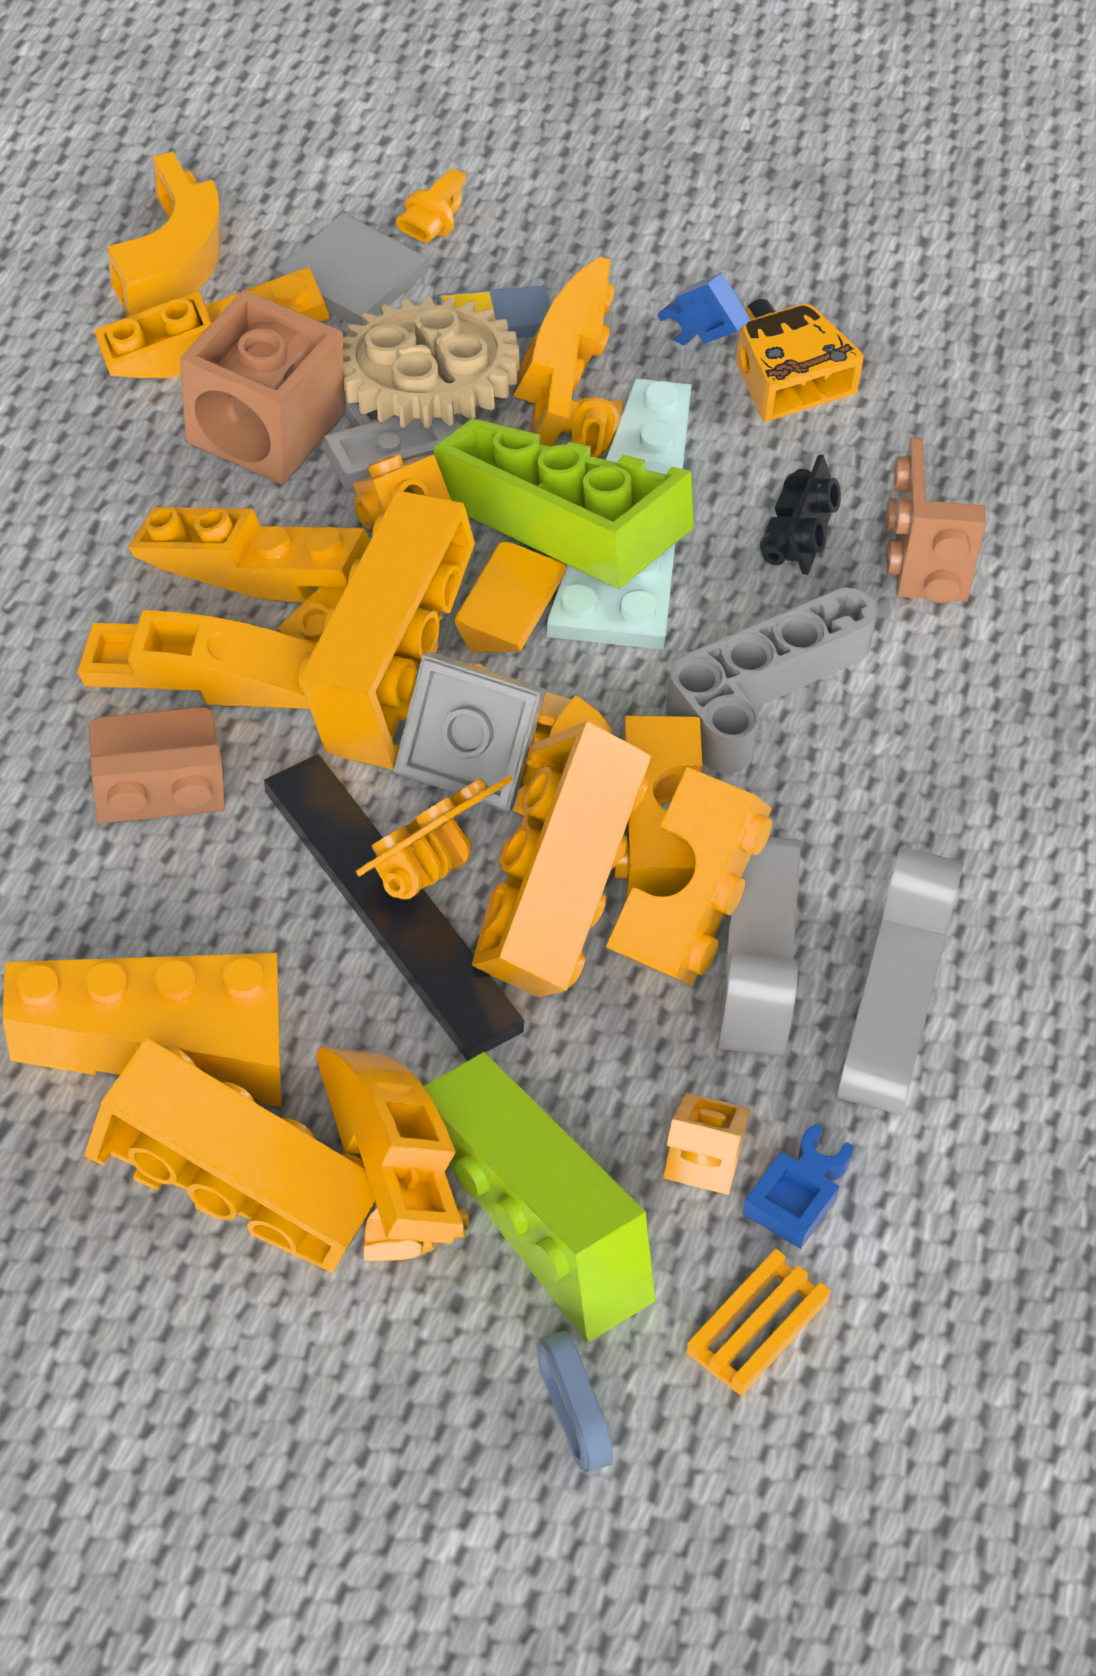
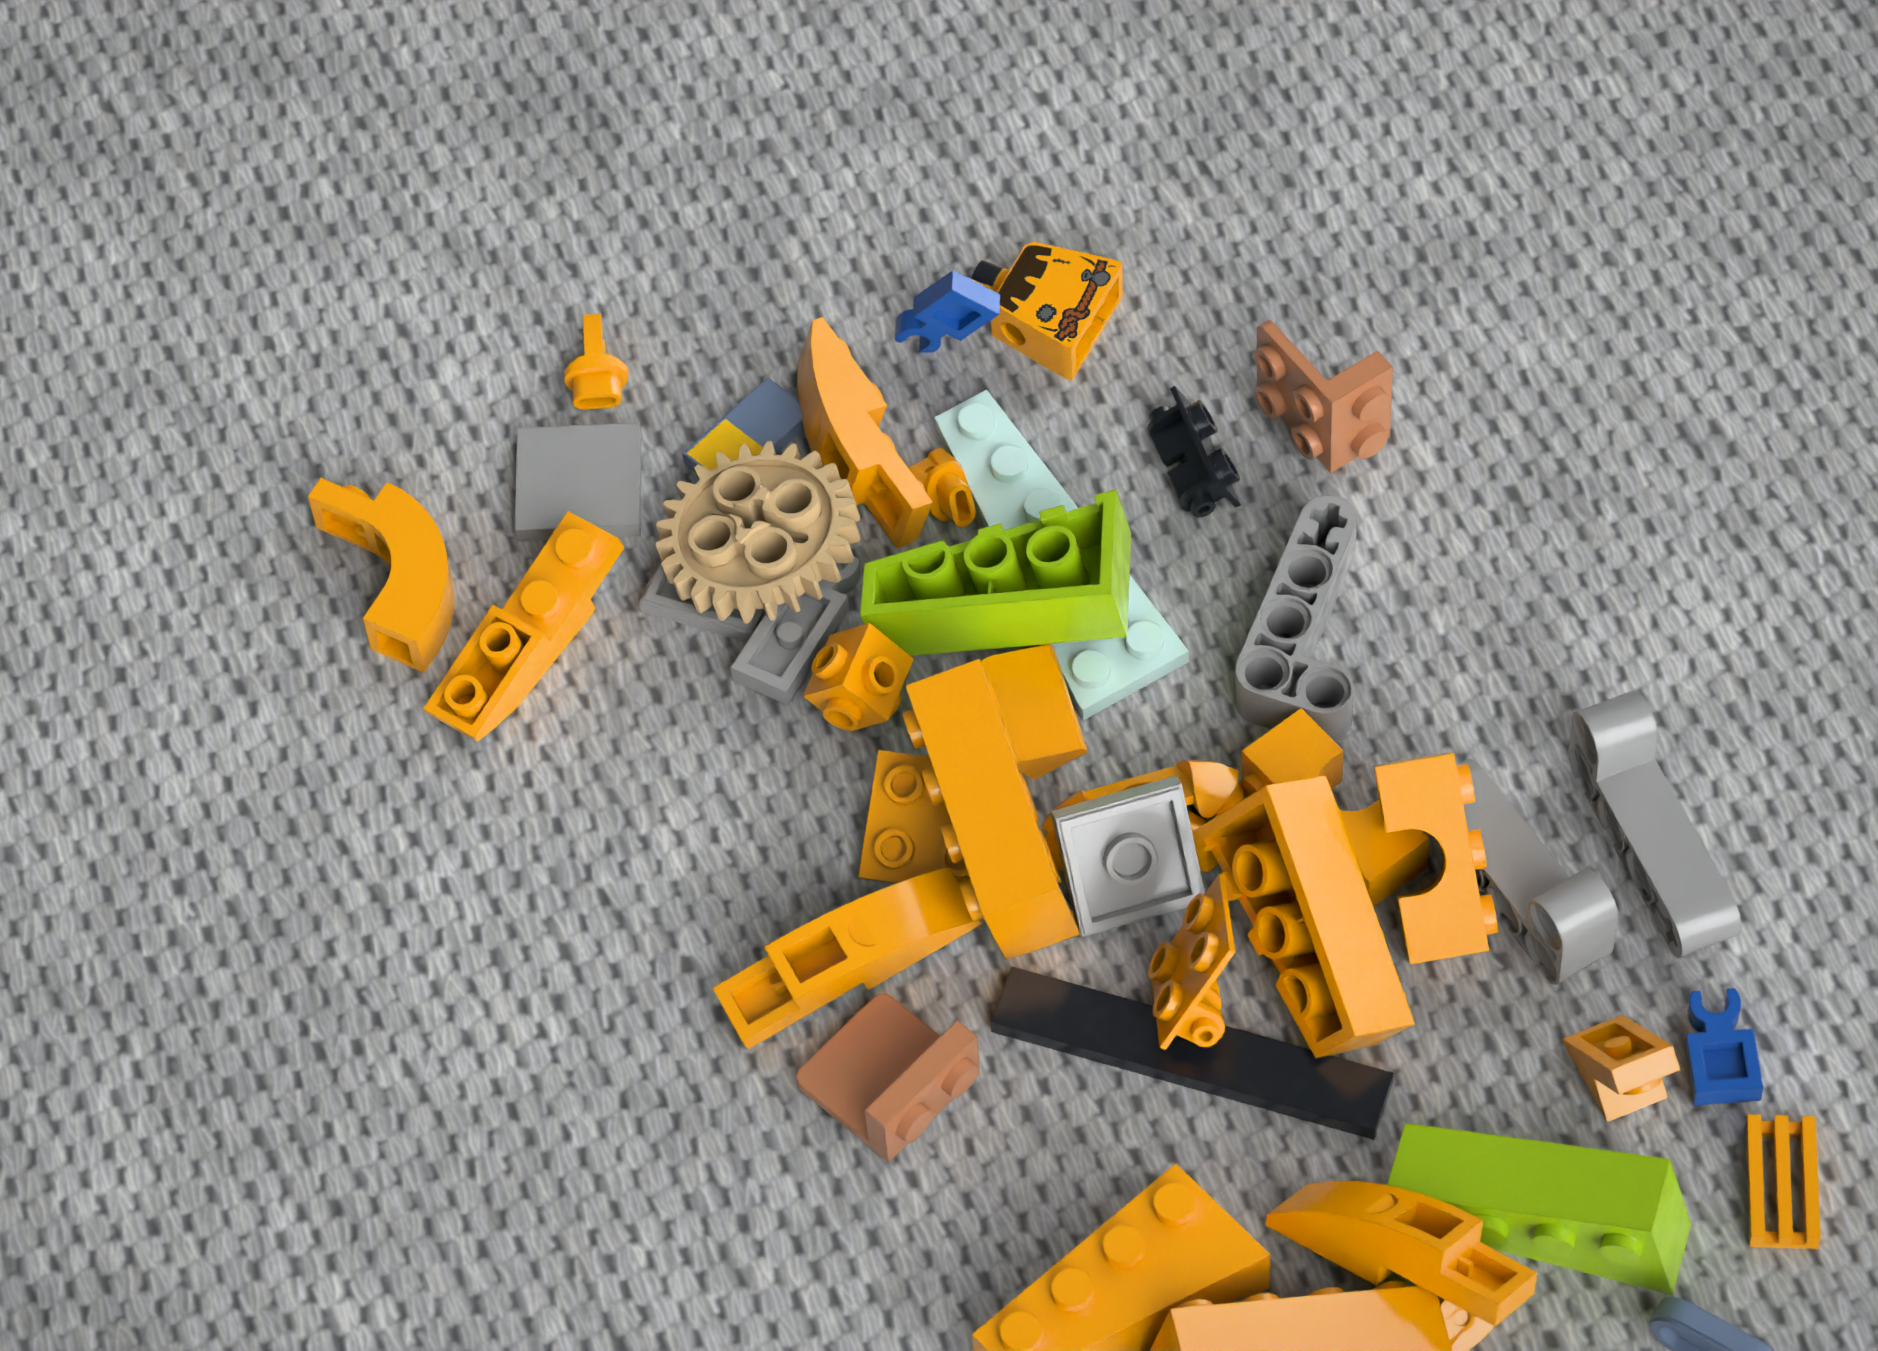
camera: 30 degrees left, 5 degrees up
(242, 556) = (781, 829): light orange slope -> none
(262, 386) = (652, 660): nougat brick -> none

